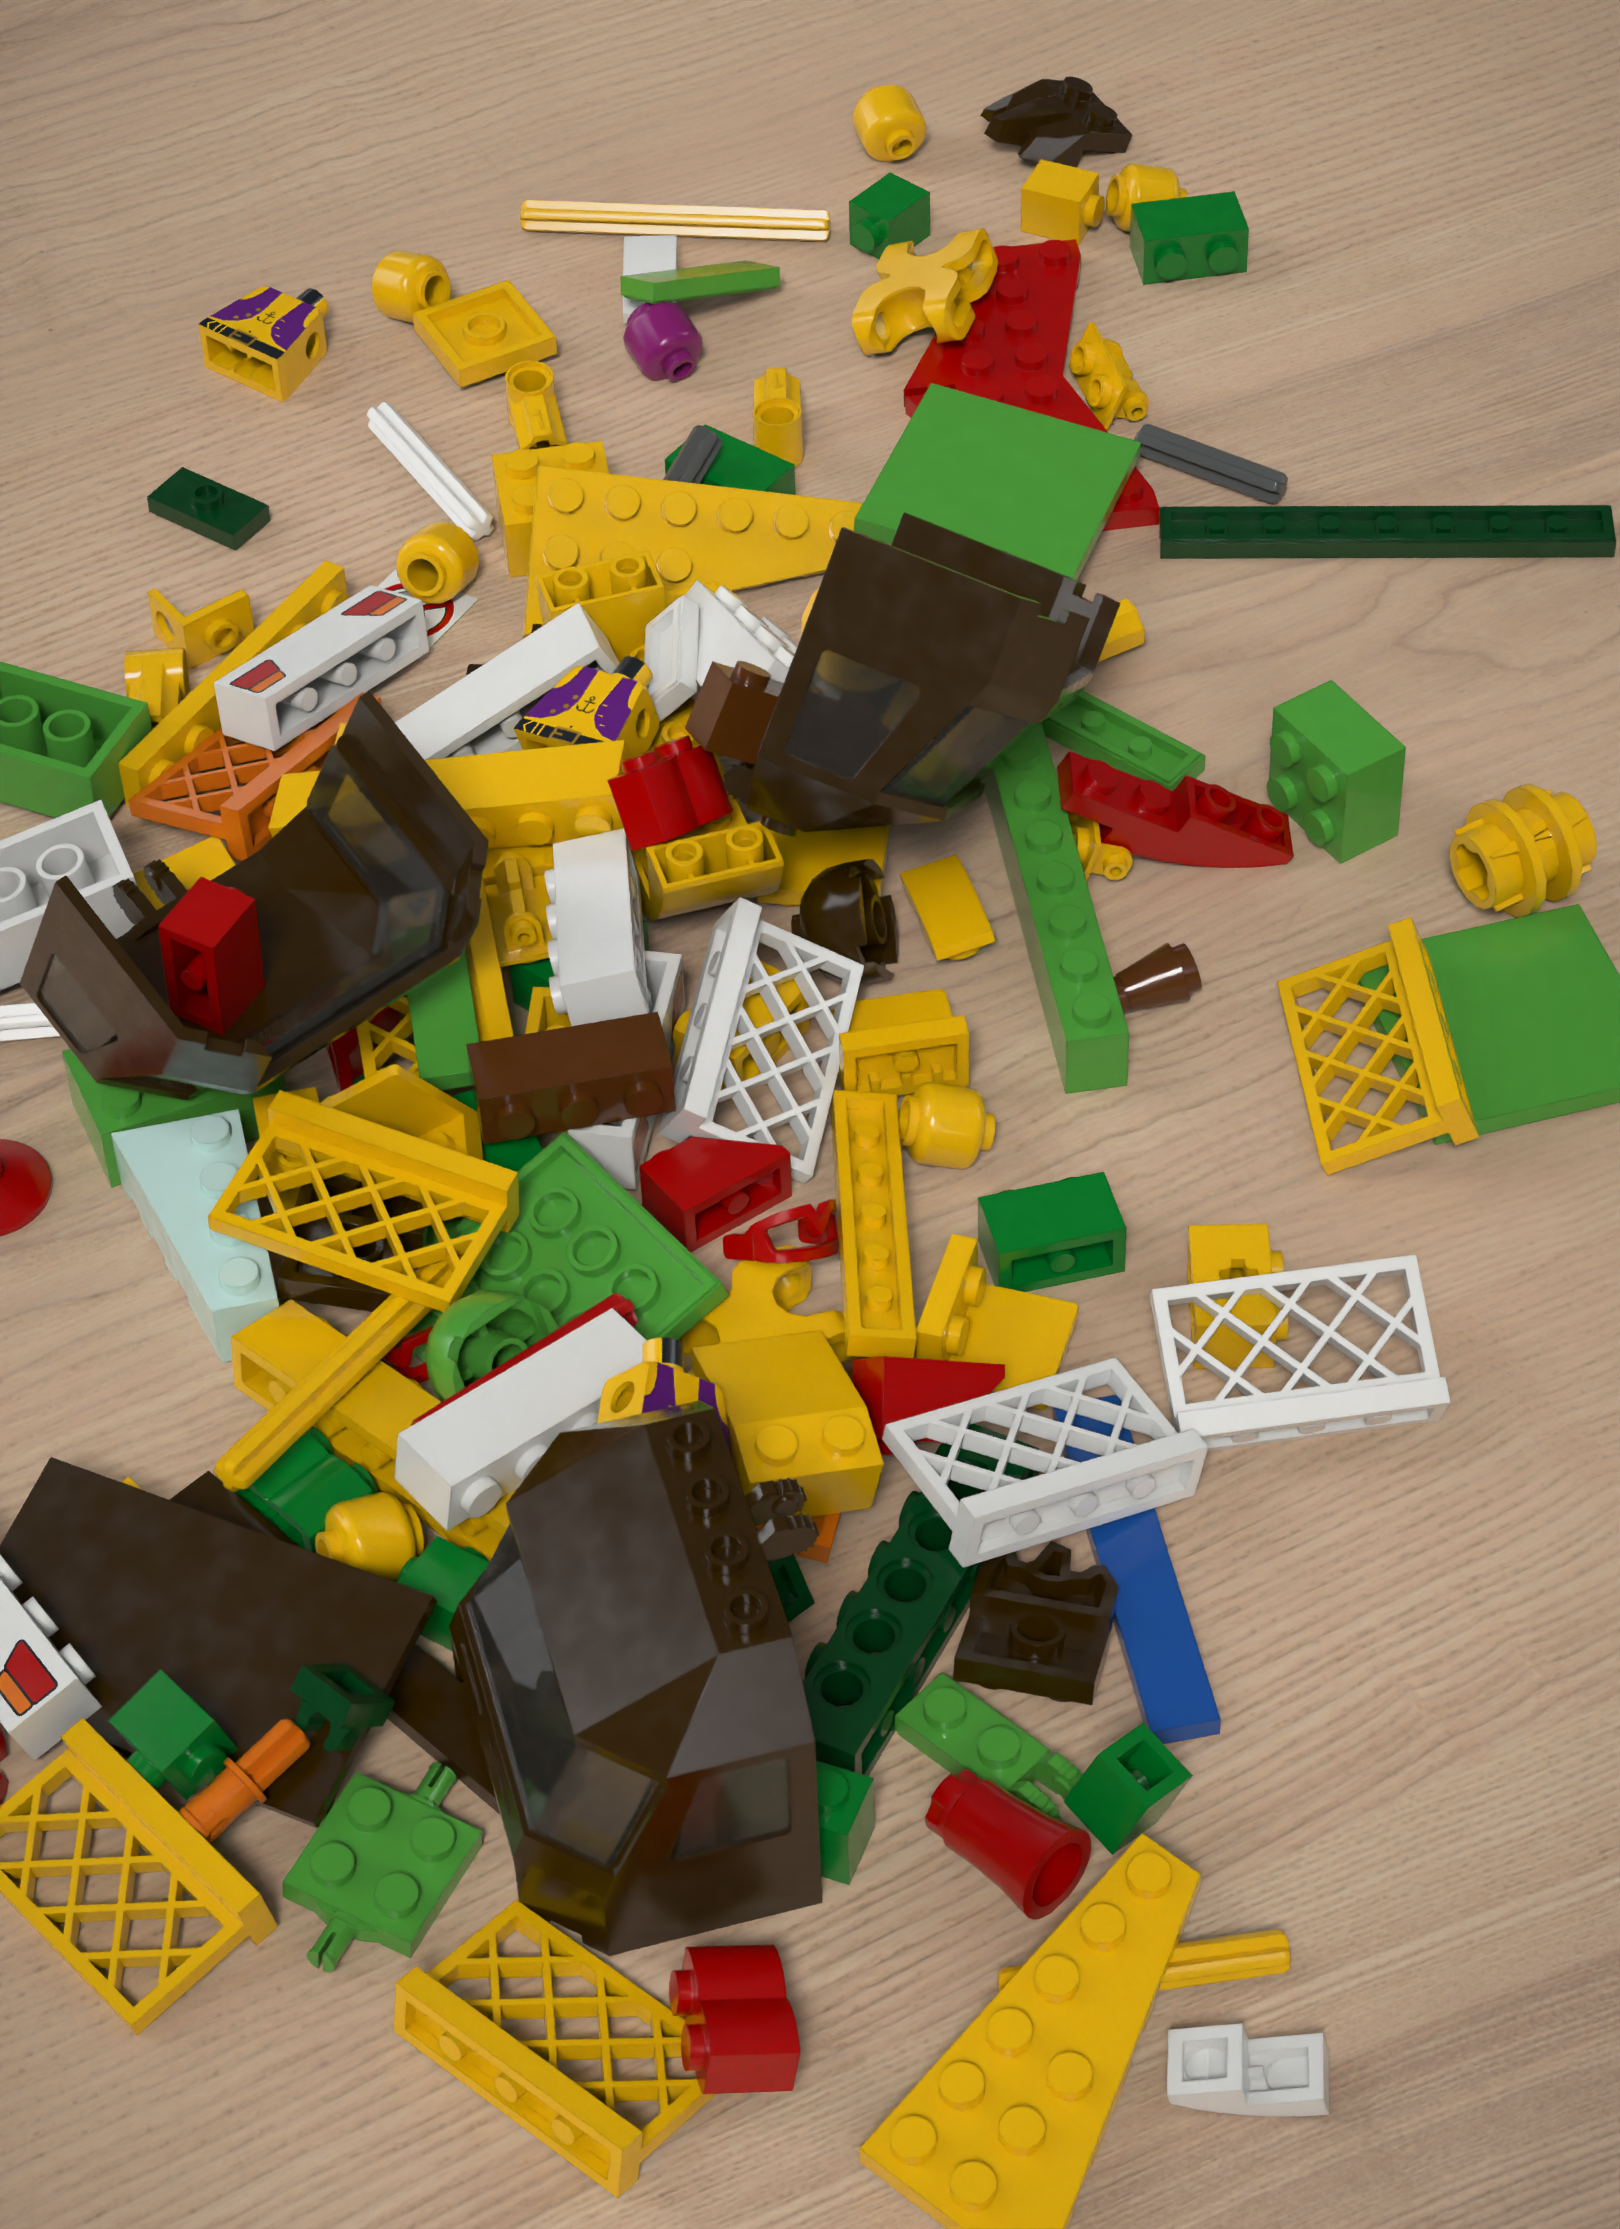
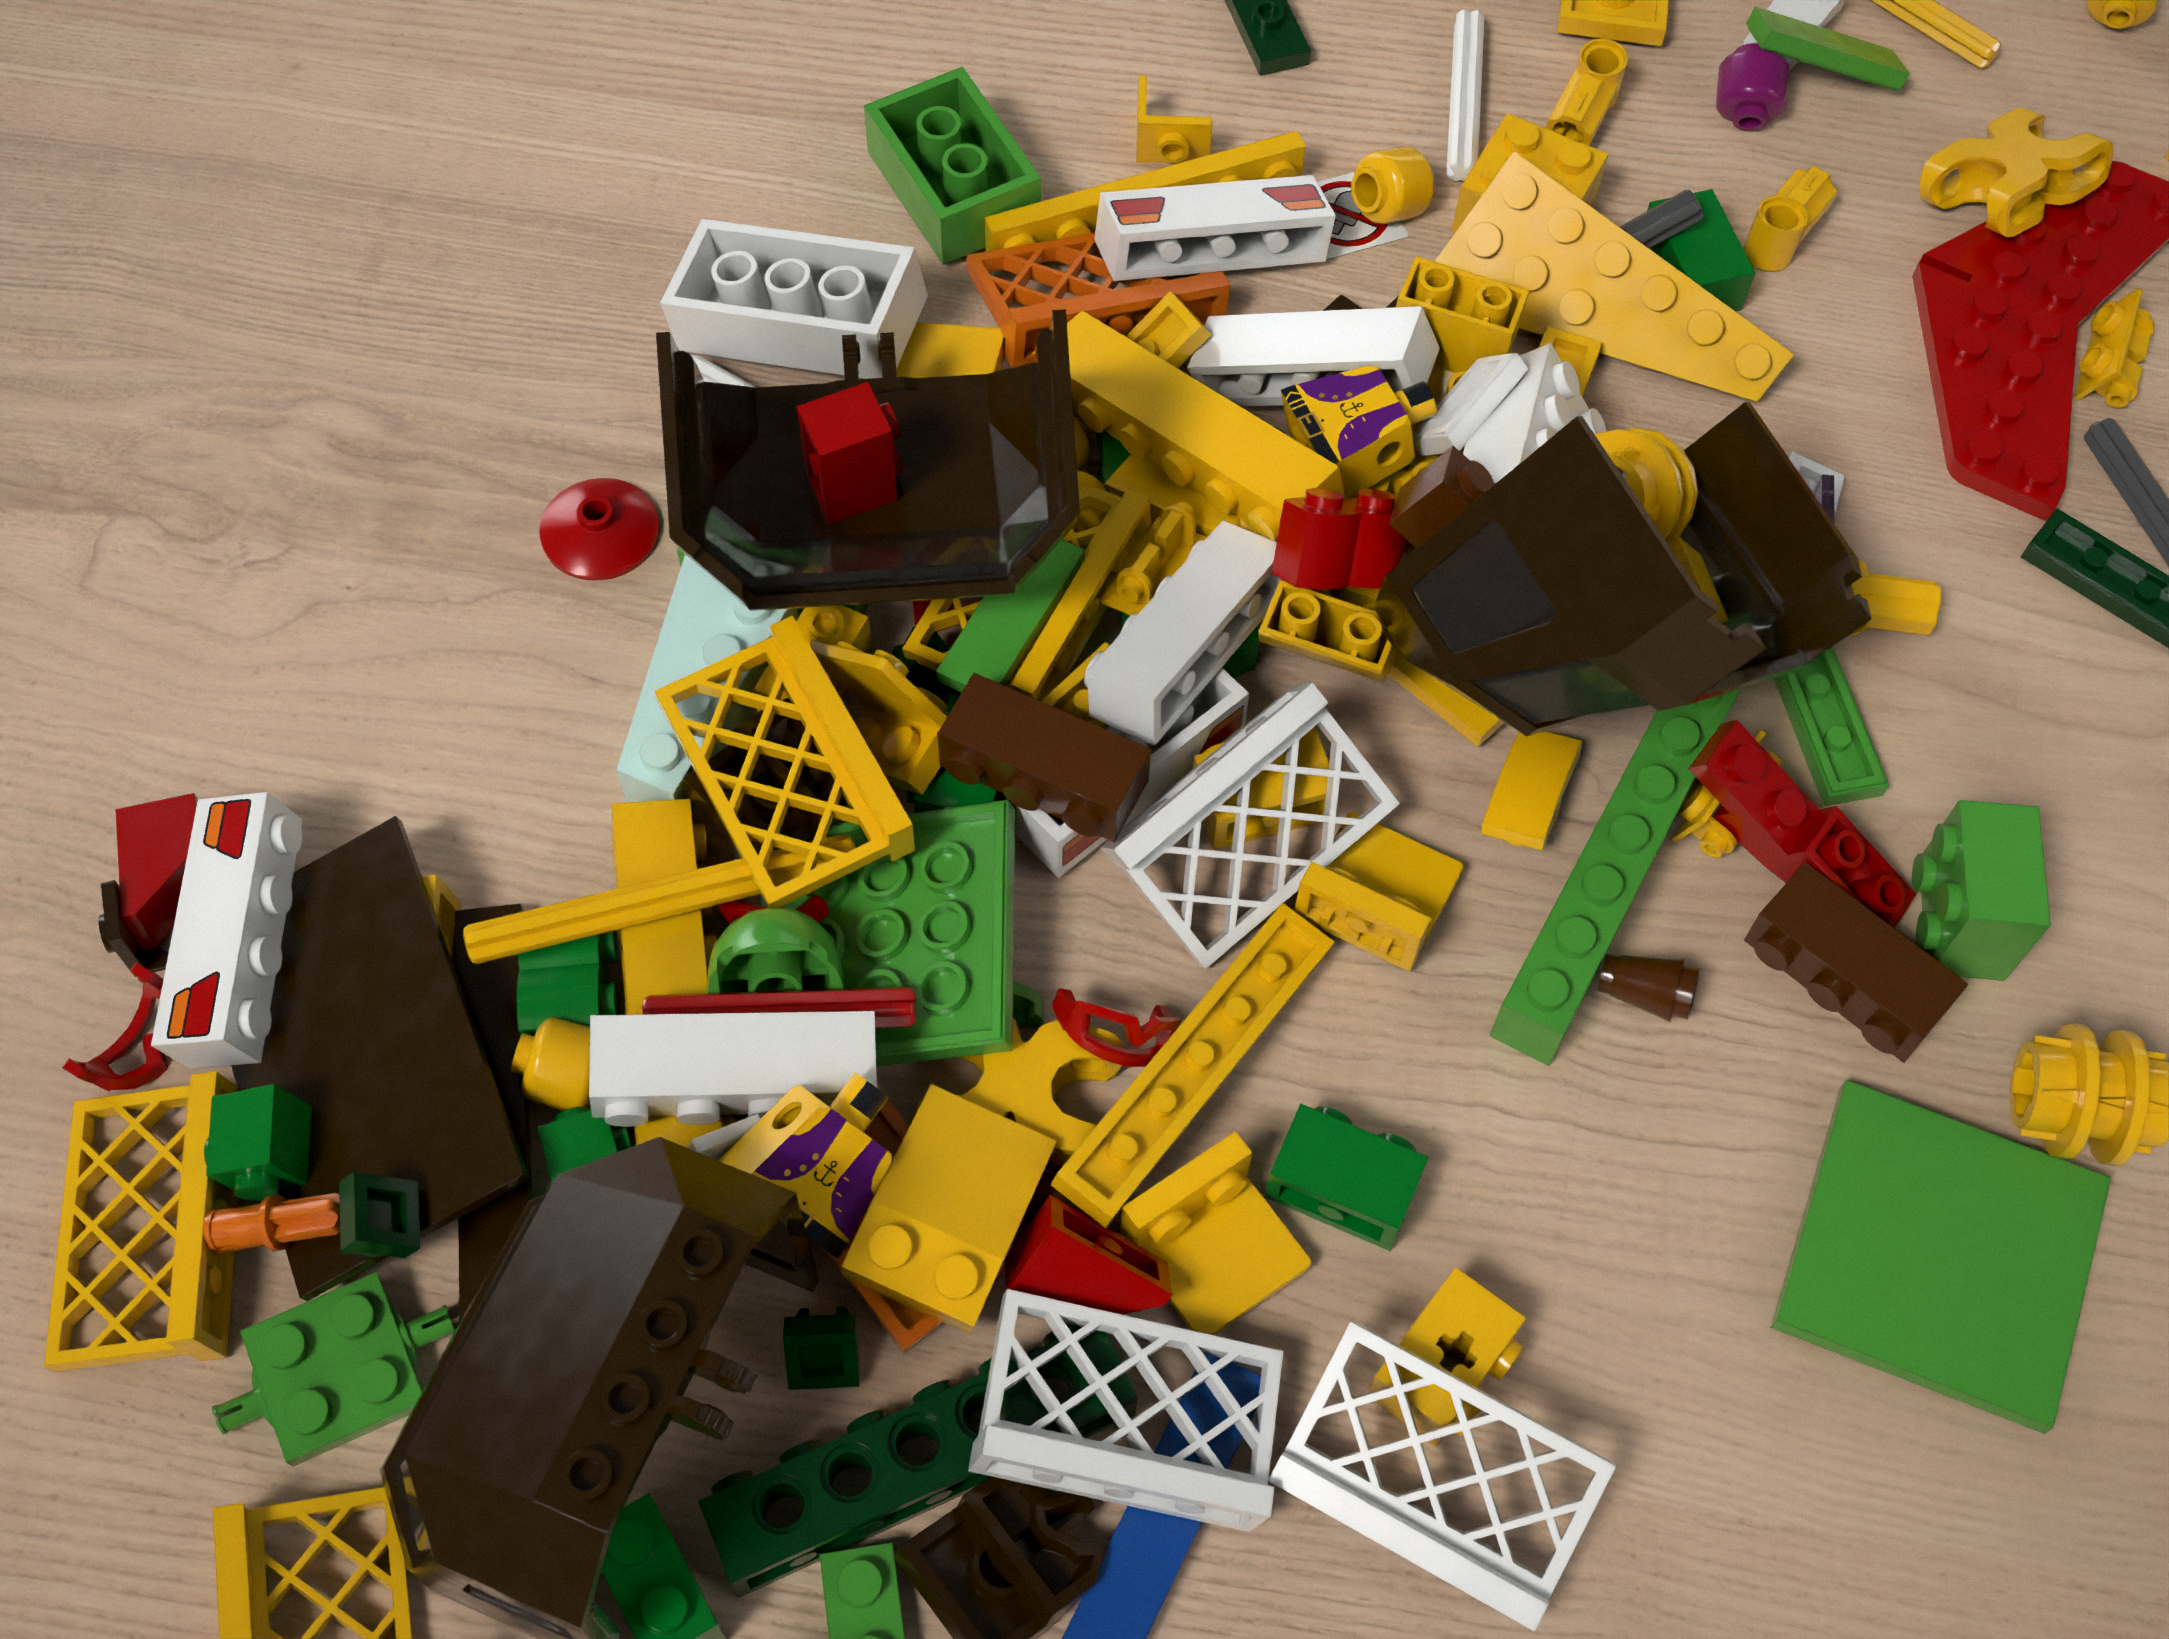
camera: 35 degrees right, 15 degrees up
(157, 678) = (1085, 160): yellow piece -> none
(713, 1186) = (1110, 924): red slope -> none
(850, 918) = (1428, 752): dark brown cylinder -> none
(889, 214) = (2050, 78): green brick -> none
(945, 1125) = (1347, 1003): yellow head -> none
(1002, 479) = (1915, 406): bright green tile -> none
(1286, 877) = (1854, 963): none -> reddish brown brick
(1429, 1047) = (1835, 1236): yellow fence -> none

